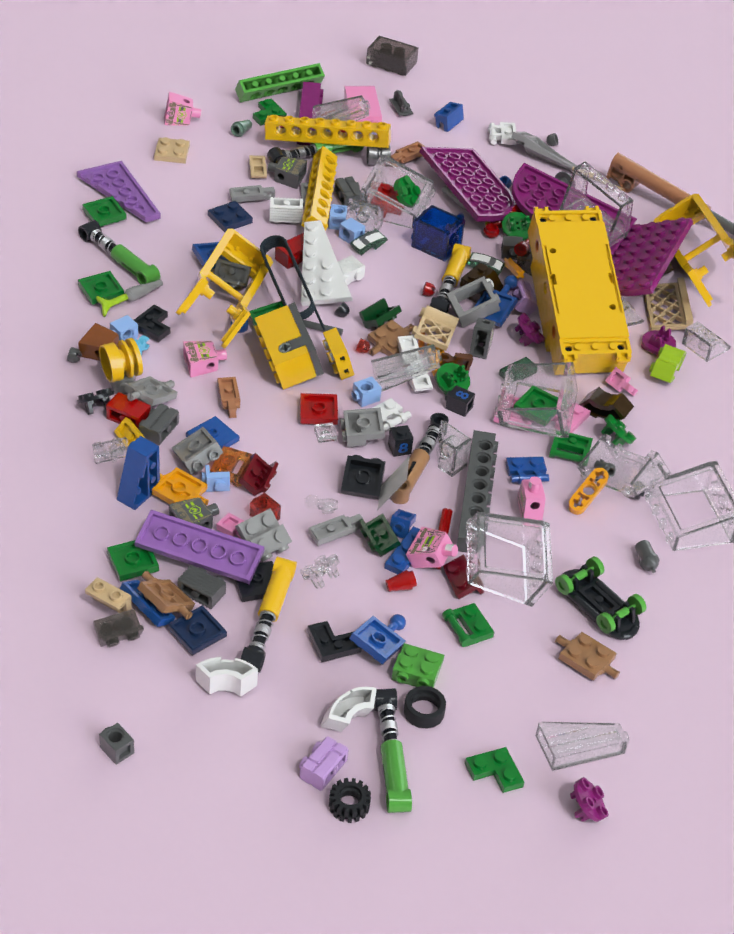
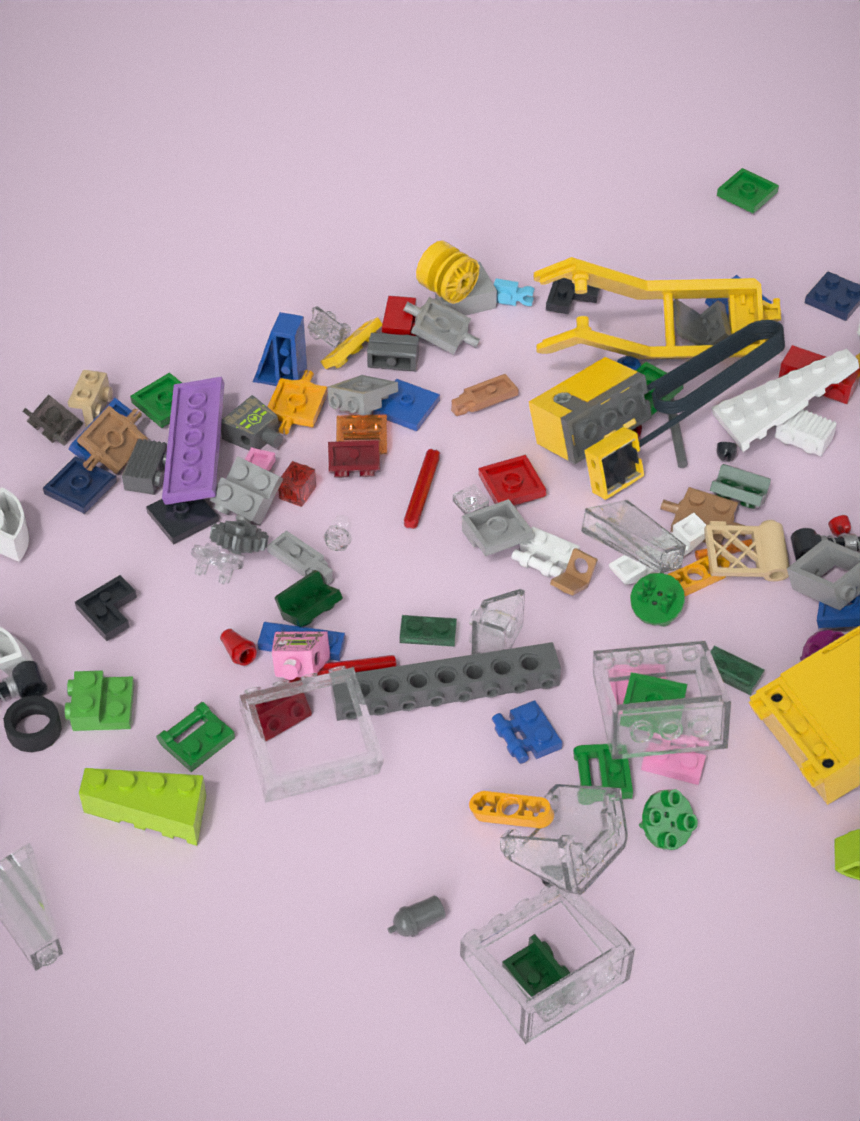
camera: 75 degrees right, 5 degrees up
(72, 355) = (474, 249): dark grey hinge -> none
(88, 399) = (400, 283): black plate -> none
(95, 337) = (502, 259): dark orange torso -> none
(100, 285) = (604, 233): green plate -> none
(117, 181) = (805, 188): medium lavender wing -> none
(125, 328) = (529, 267): light blue brick -> none
(131, 294) = (608, 259): piece -> none
(144, 272) = (656, 257): piece -> none
(202, 357) = (521, 351): bright pink torso -> none
(216, 480) = (324, 424): light blue bracket -> none
(269, 610) = (186, 524): piece -> none
(299, 453) = (421, 488): none -> red axle
(307, 550) = (238, 536): none -> dark grey gear
(363, 346) = (665, 490): clear red hinge -> none
(363, 476) = (405, 556): black plate -> none
(366, 391) = (569, 516): light blue brick -> none
(374, 629) = (129, 661): blue plate -> none
(393, 483) = (391, 581): white sticker -> none
(400, 440) = (494, 575): black brick -> none
(401, 522) = (346, 617): blue bracket -> none
(416, 410) = (572, 580): none -> medium nougat bracket
(419, 459) = (406, 600): piece -> none
(426, 488) = (428, 630): none -> clear green plate
(459, 358) = (697, 595): reddish brown plate -> none
(459, 400) = (618, 619): black brick -> none
(483, 333) = (768, 606): dark grey torso -> none
(522, 653) = (146, 799): none -> lime wedge
(531, 492) = (451, 744): bright pink torso -> none
(587, 656) = (190, 885): medium nougat plate -> none
(599, 602) = (296, 875): black piece -> none
(604, 403) = (719, 793): dark brown brick -> none
(609, 467) = (565, 821): dark grey pin -> none
(620, 380) = (792, 799): bright pink plate -> none
(700, 512) = (535, 966): none -> dark green bracket

